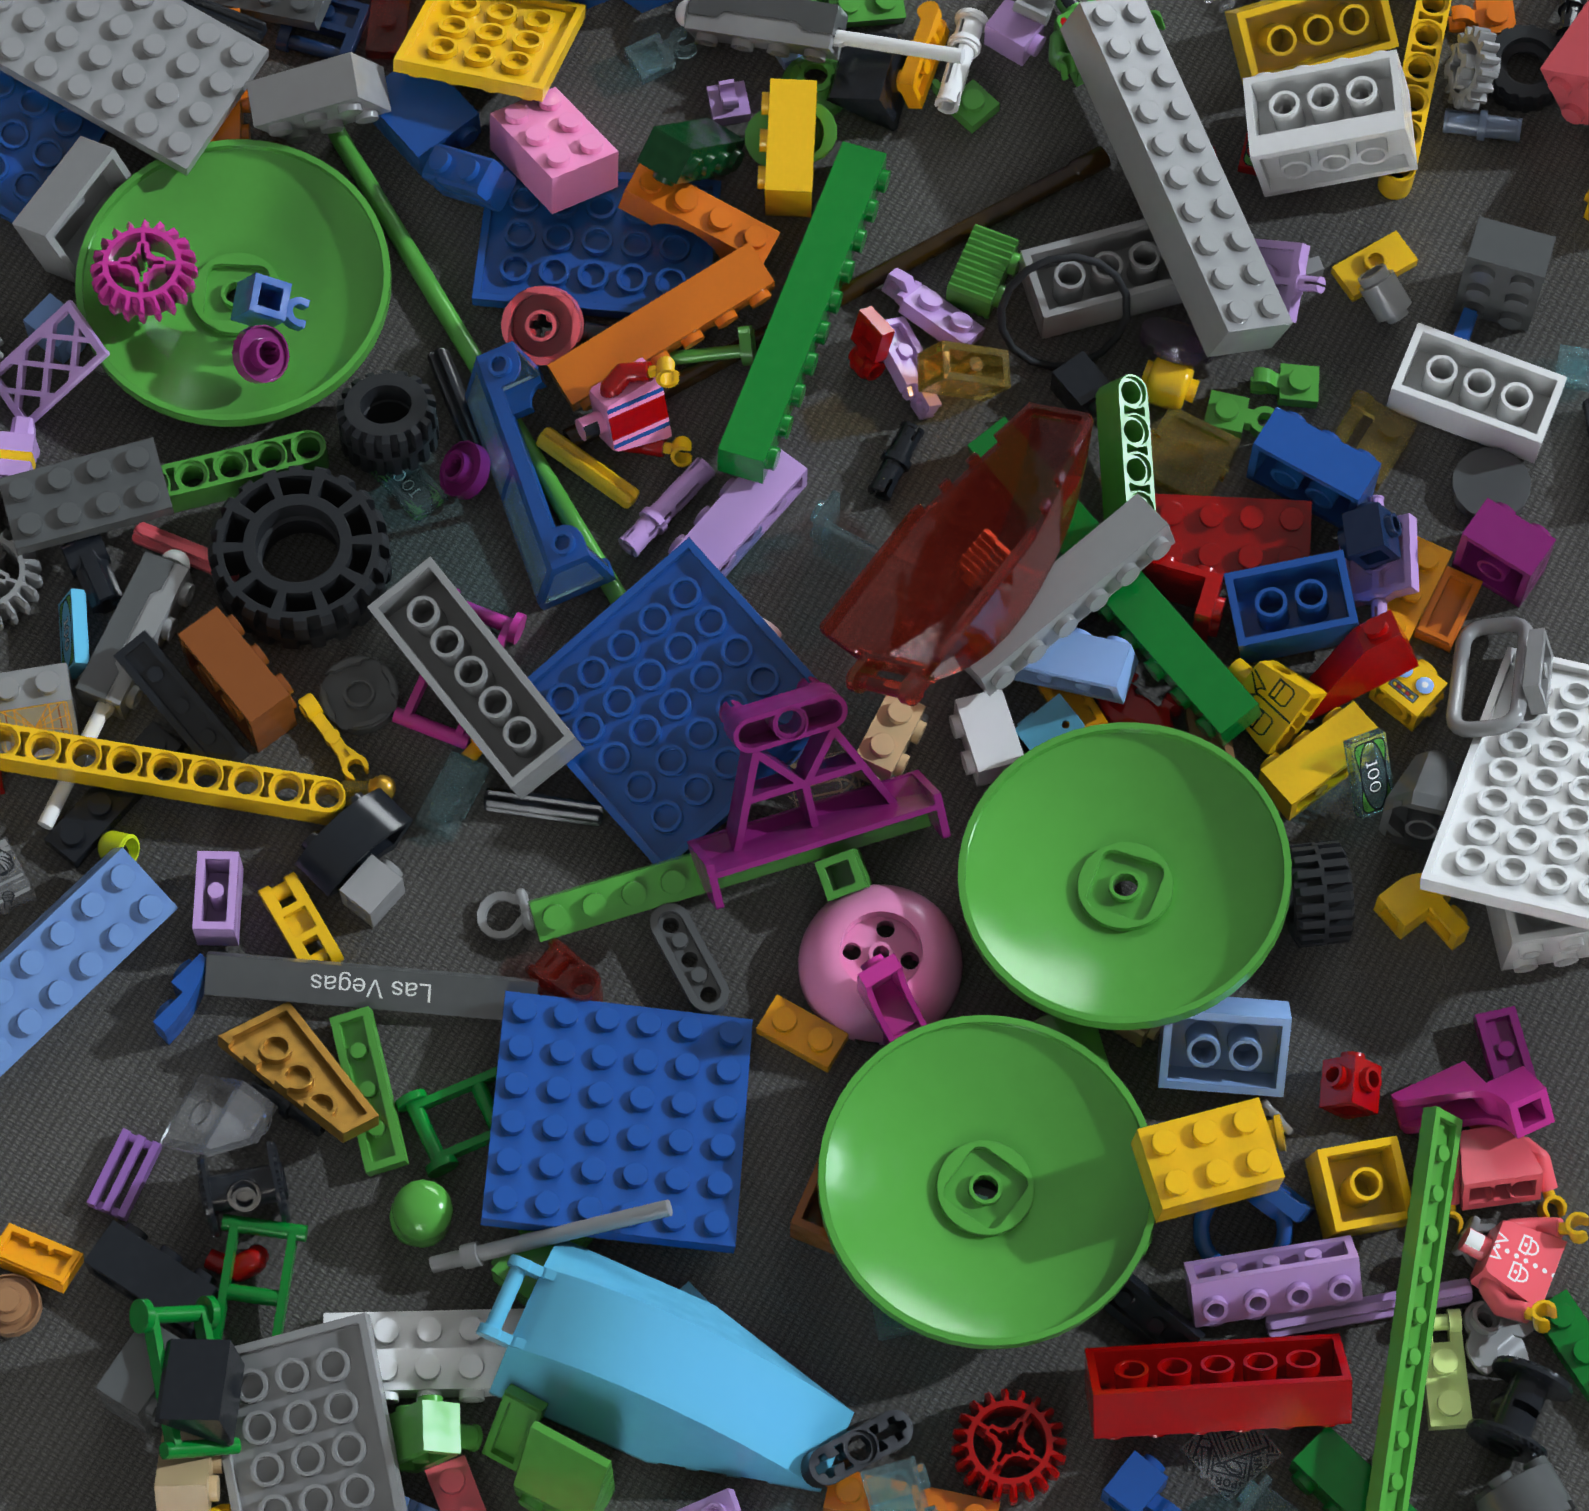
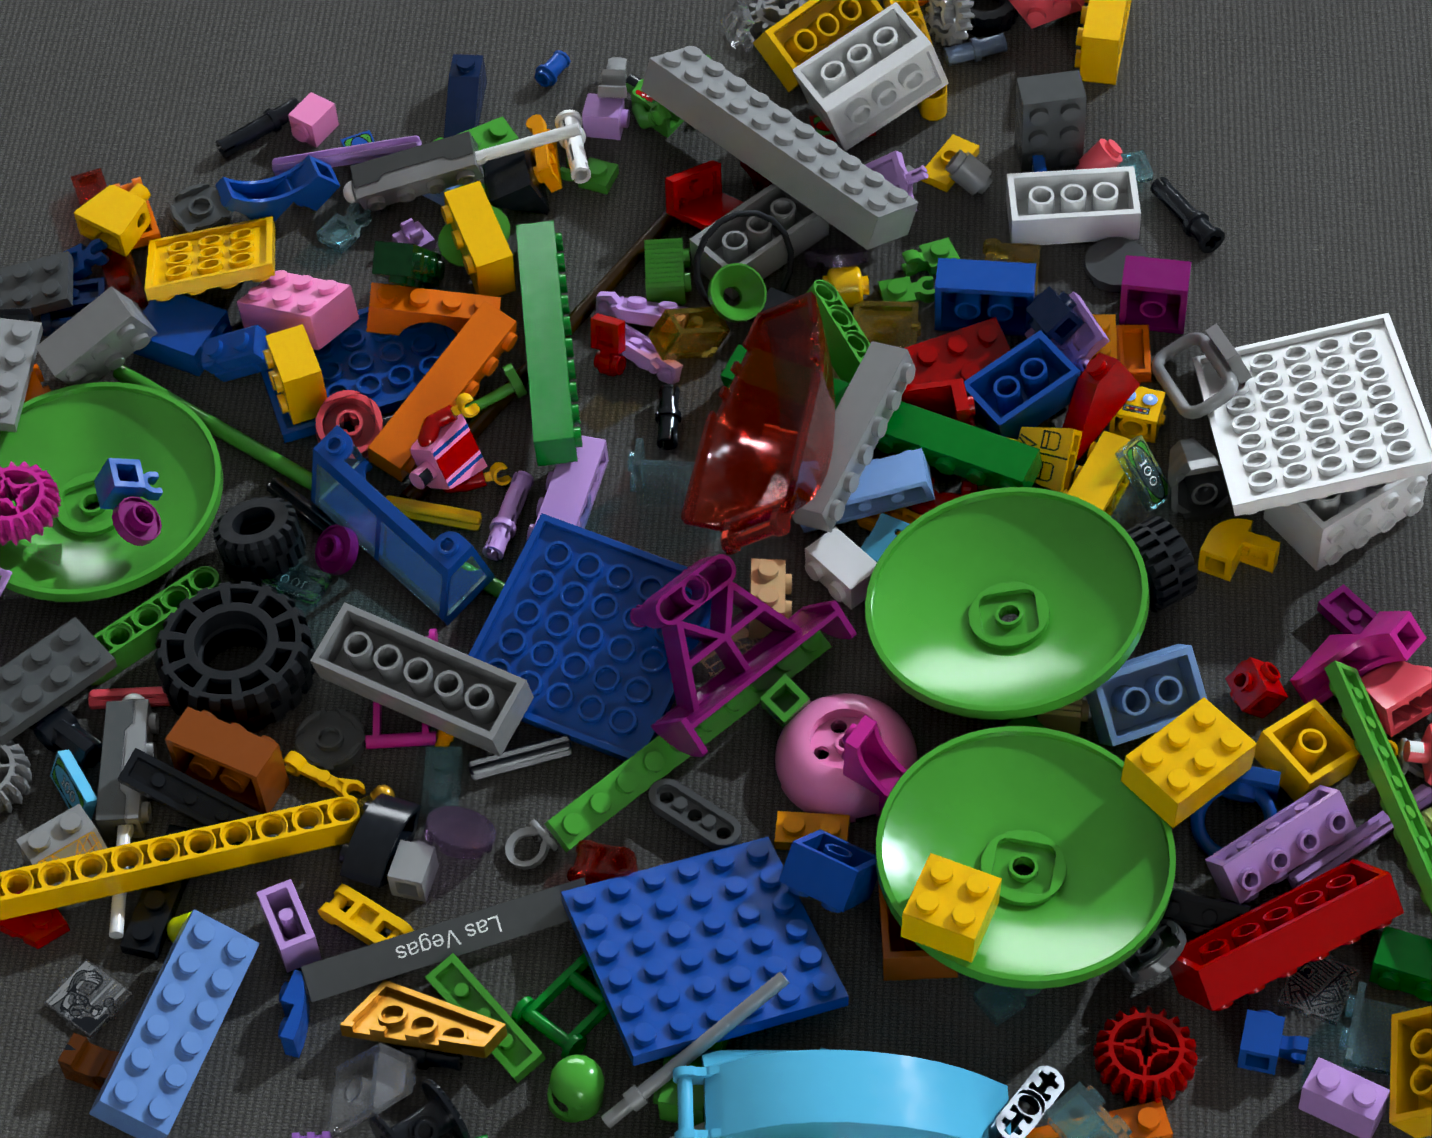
camera: 20 degrees left, 15 degrees down
(438, 869) = (460, 832): none -> clear purple tile
(510, 238) = (295, 373): none -> yellow brick
(787, 1094) = (829, 871): none -> blue brick
(870, 1214) = (951, 907): none -> yellow brick
(1050, 361) = (747, 284): none -> bright green piece
(1065, 197) = (697, 195): none -> red bracket
(1078, 1346) = (1155, 955): none -> dark grey tile
(1540, 344) = (1102, 155): none -> coral brick

